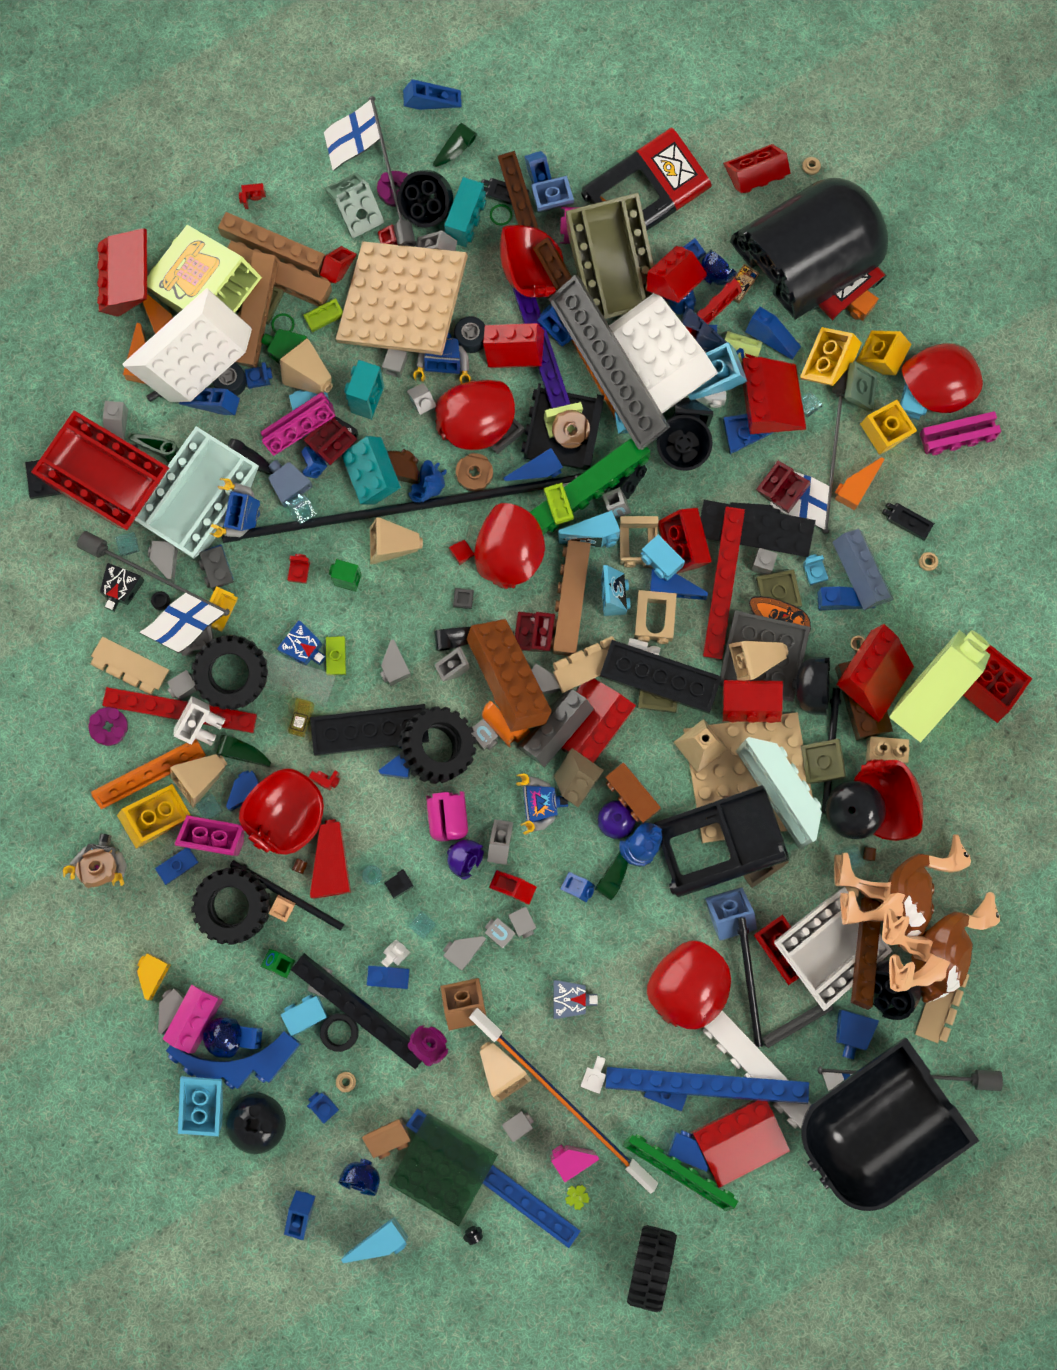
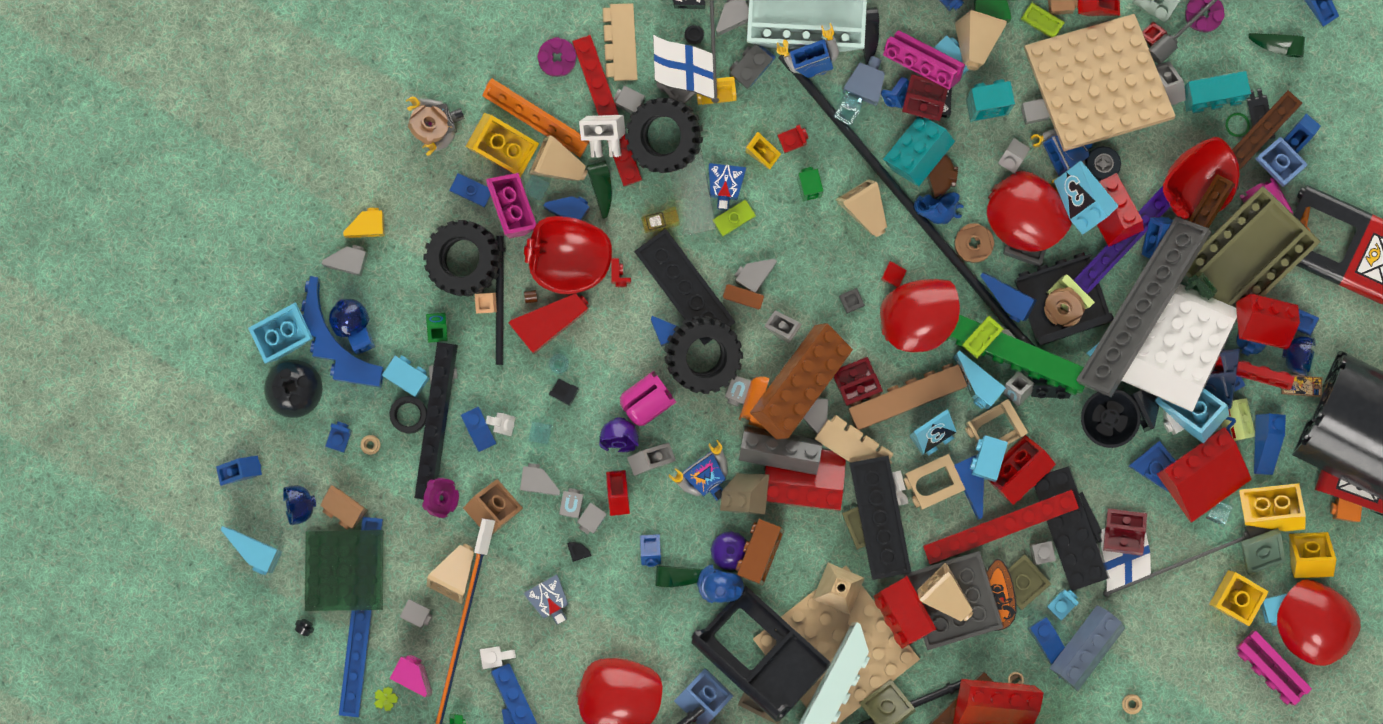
camera: 60 degrees right, 5 degrees up
(192, 1019) = (348, 283): dark pink slope -> none
(293, 599) = (762, 151): none -> yellow slope
(407, 684) = (743, 296): none -> dark orange slope
(416, 195) = (1207, 48): black cylinder -> none
(451, 638) = (808, 311): black piece -> none
(490, 360) = (1084, 197): none -> medium azure slope
(543, 950) = (578, 551): none -> black tile
(619, 309) = (1204, 286): none -> clear green bracket
(813, 685) = (950, 660): black cylinder -> none
(855, 486) = (1162, 598): orange slope -> none
(908, 520) = (1160, 664): black hinge -> none

